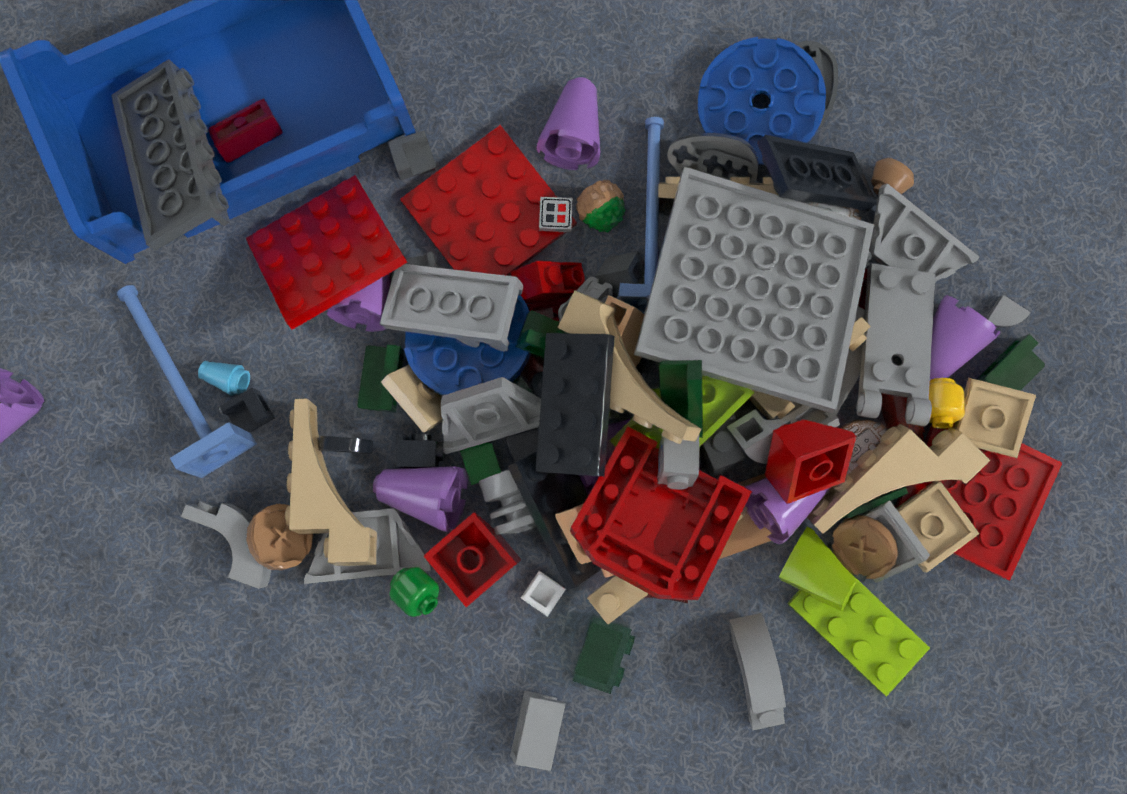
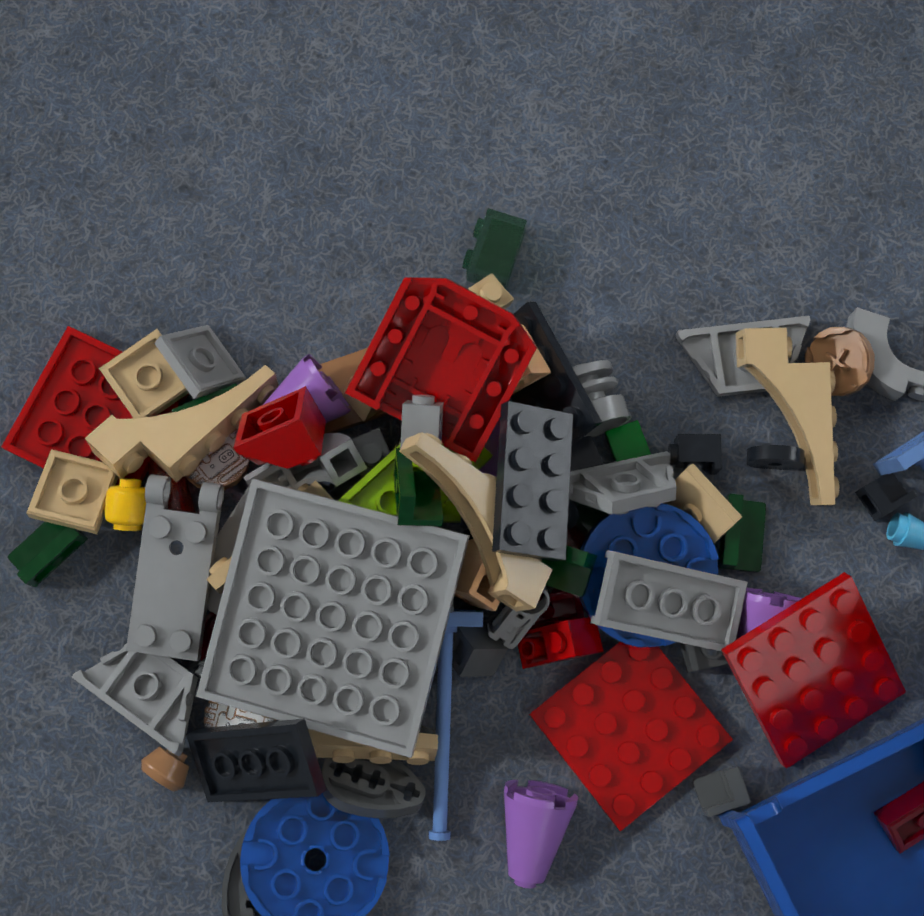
camera: 175 degrees left, 5 degrees down
(414, 591) = (694, 305): green head -> none
(424, 493) = (688, 407): medium lavender cone -> none
(472, 558) = (634, 338): red slope -> none
(537, 731) = (561, 176): light grey hinge -> none
(543, 593) = (559, 310): white tile -> none
(555, 214) = (553, 718): light grey tile -> none
(601, 206) = (501, 729): piece -> none
(759, 671) = (335, 235): light grey arch -> none
(818, 571) = (270, 331): lime slope -> none
(865, 546) = (219, 355): medium nougat tile -> none
(865, 635) = (228, 282): lime plate -> none
(957, 337) = (107, 579): medium lavender cone -> none
(1007, 313) = (46, 613): light grey tile -> none

